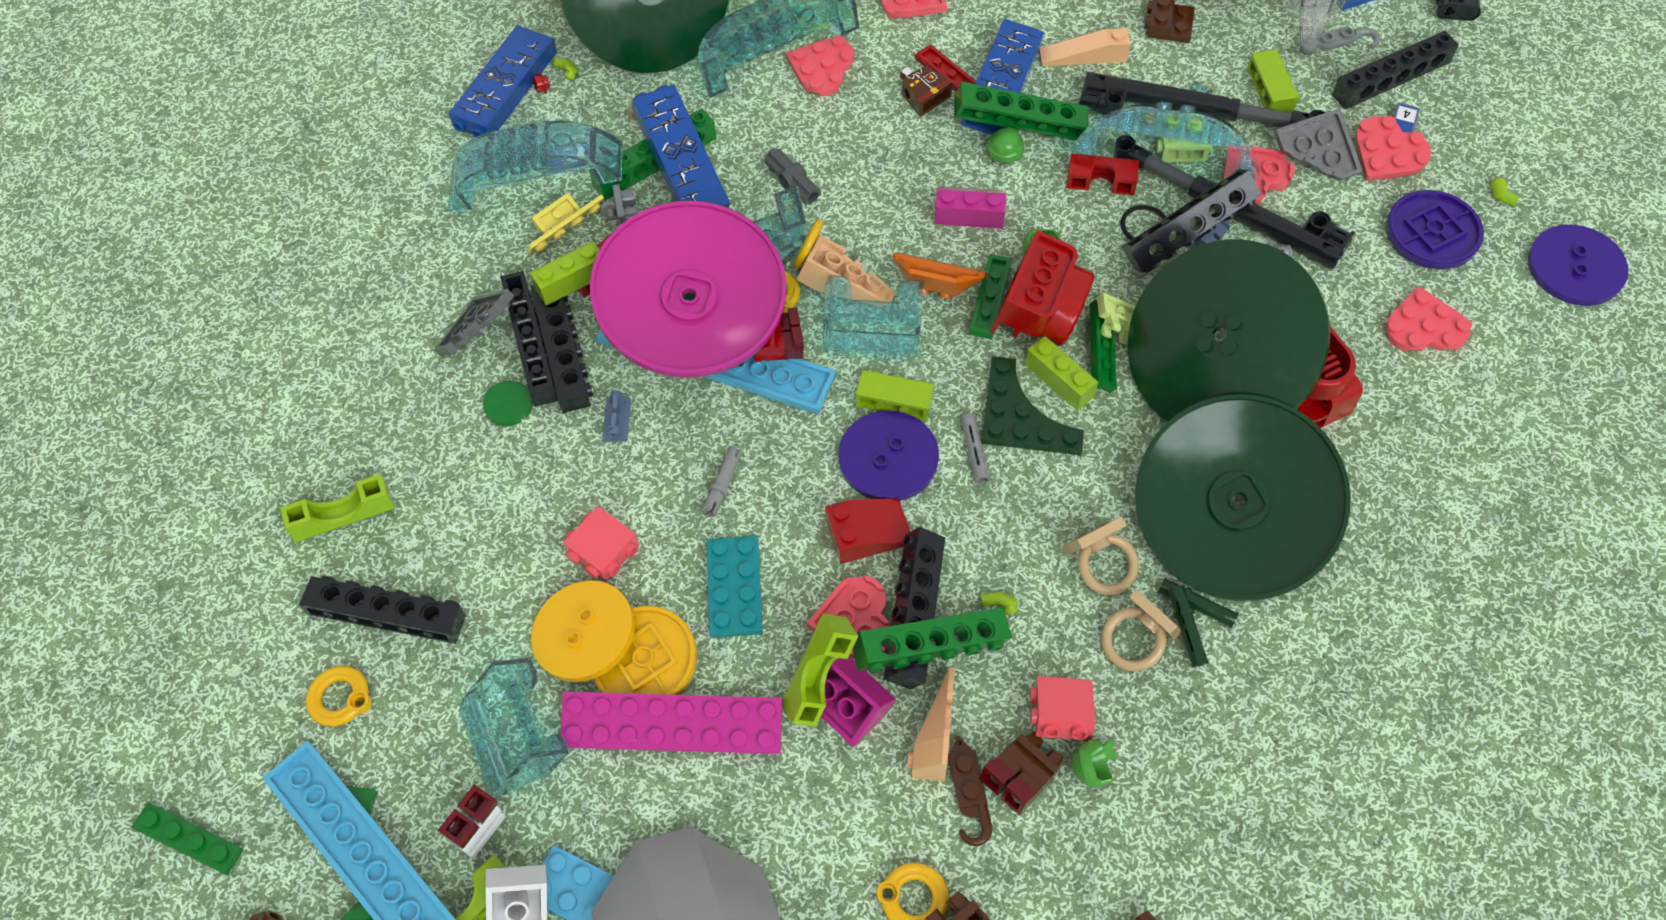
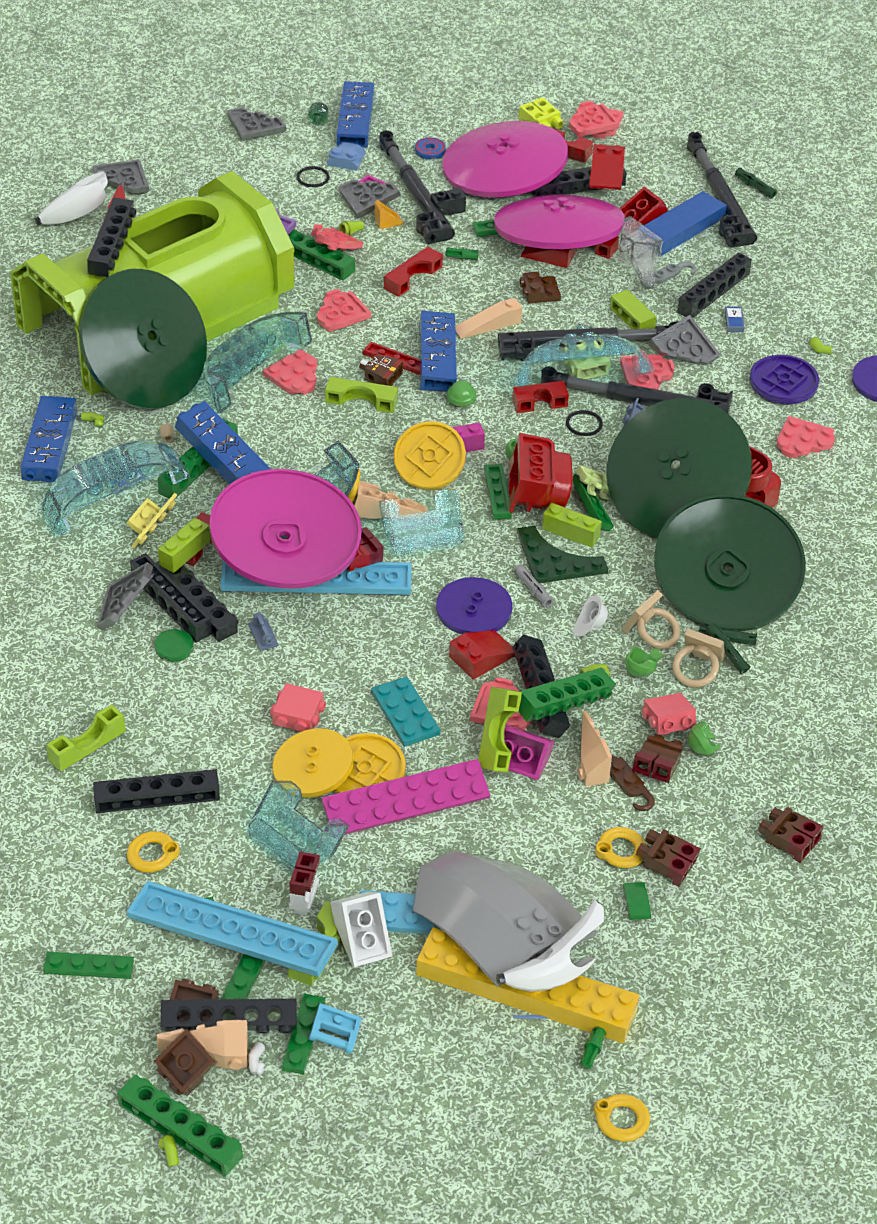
camera: 25 degrees left, 15 degrees down
(541, 83) = (79, 433): red plate -> none
(622, 198) = (189, 499): light grey hips -> none
(718, 490) = (363, 657): light grey pin -> none
(792, 175) = (309, 449): dark grey piece -> none
(865, 103) = (342, 390): none -> lime arch
(894, 393) = (456, 566): lime brick -> none
(925, 220) = (429, 455): none -> yellow plate
(938, 276) = (466, 484): orange wedge -> none
(1020, 111) = (464, 367): green brick -> none
(1027, 520) = (591, 617): none -> white piece
(1063, 612) = (640, 663): none -> bright green hat
(1245, 194) = (590, 437): black brick -> none
(1388, 151) = (733, 338): coral plate -> none

